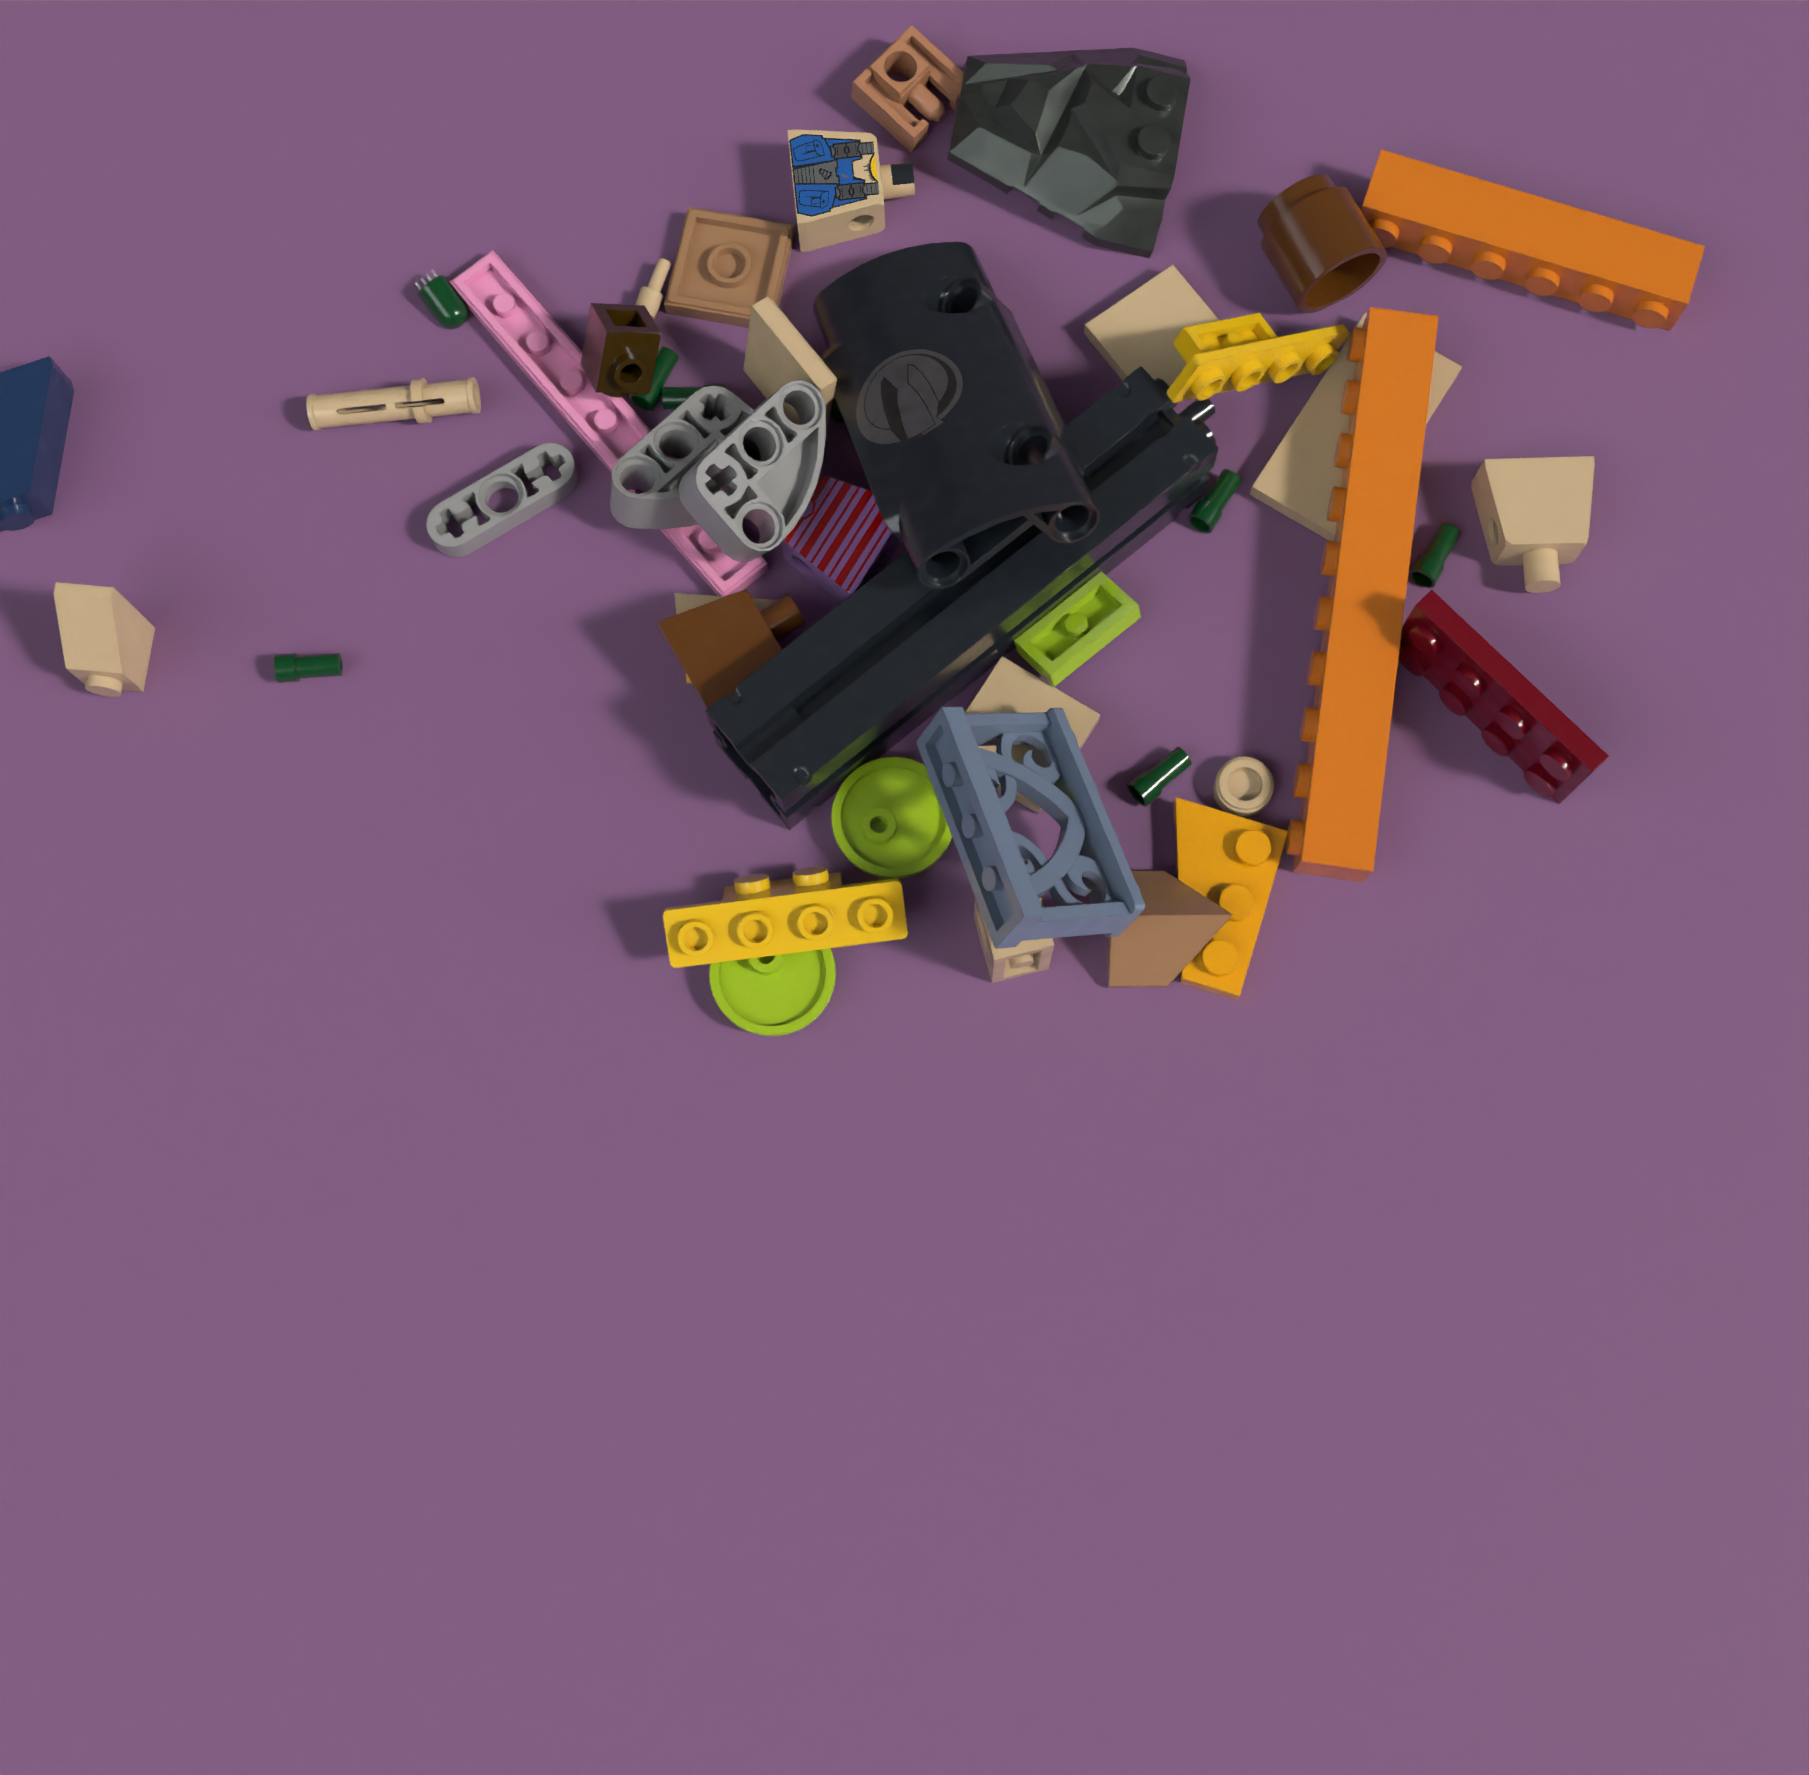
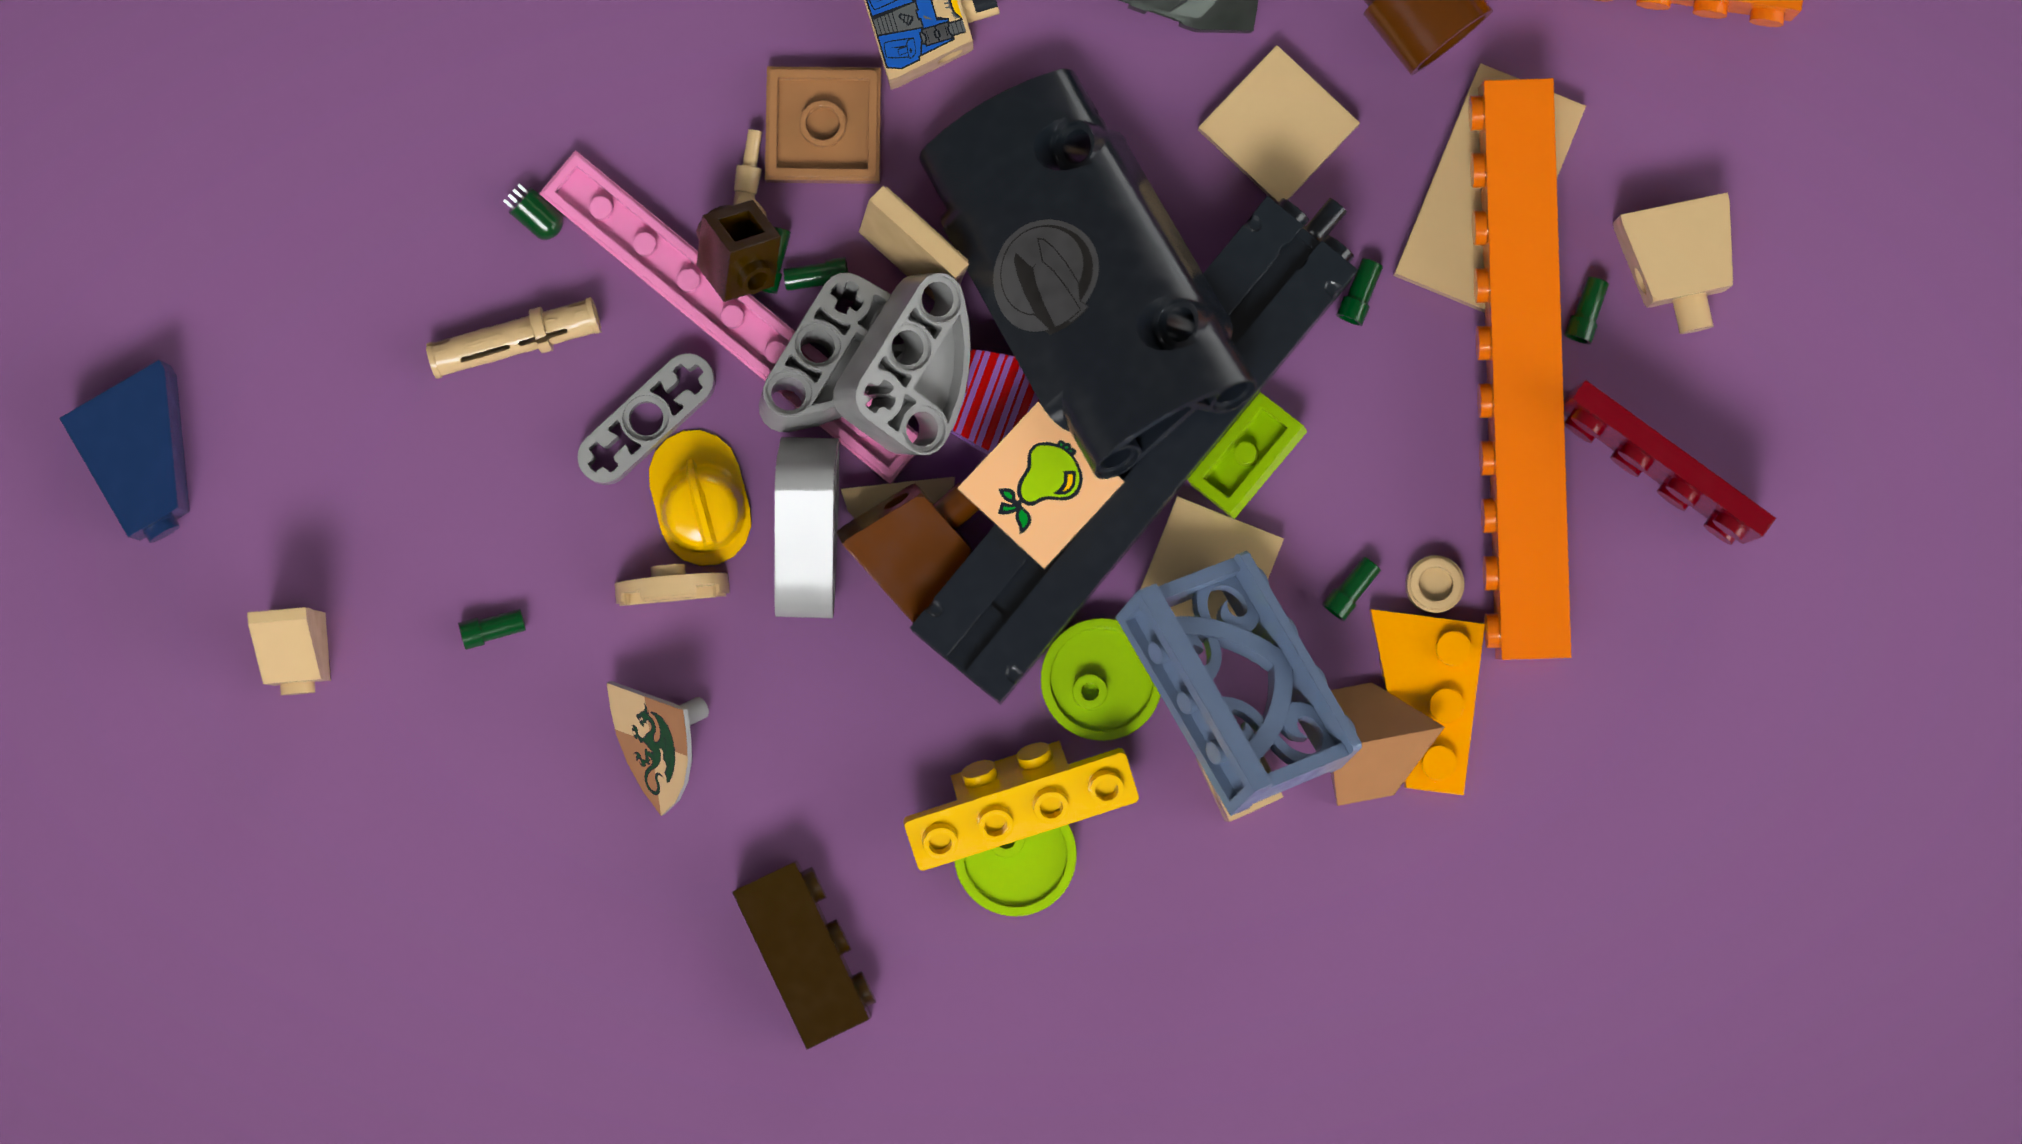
camera: 10 degrees left, 10 degrees up
(438, 795) = (655, 741): none -> shield
(491, 654) = (671, 584): none -> tan plate
(538, 584) = (699, 497): none -> yellow piece
(538, 1032) = (805, 953): none -> dark brown brick
(630, 598) = (806, 526): none -> beam
(863, 593) = (1038, 486): none -> light nougat tile
(1248, 353) = (1362, 146): yellow bracket -> none

